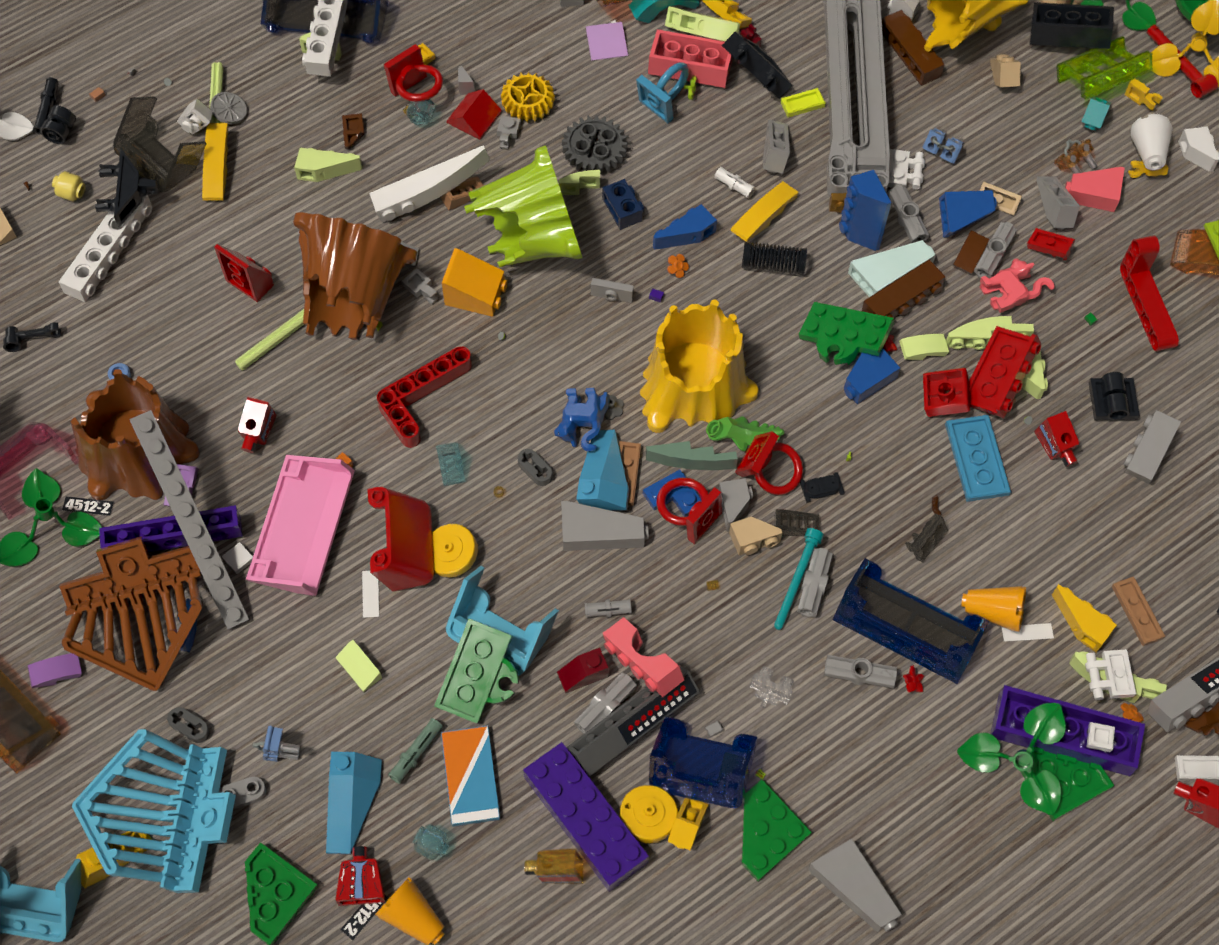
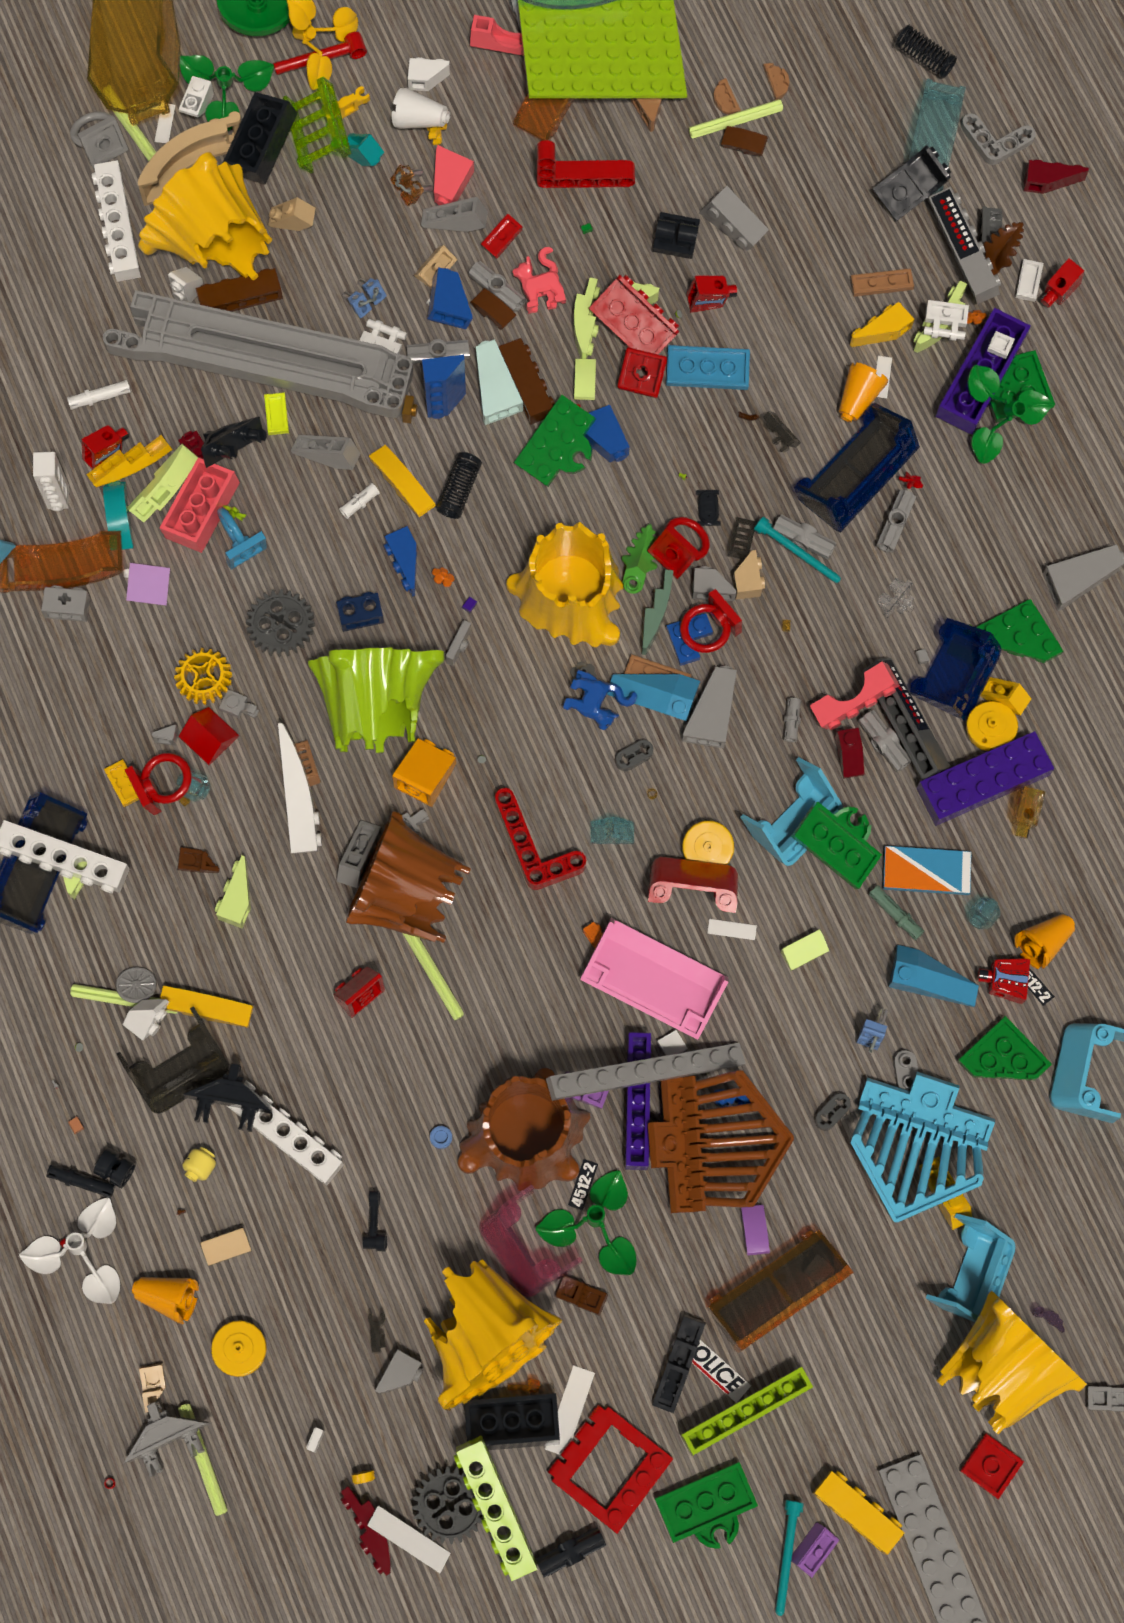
camera: 80 degrees left, 10 degrees up
(256, 423) = (528, 1005): torso -> none
(572, 183) = (322, 636): yellowish green slope -> none

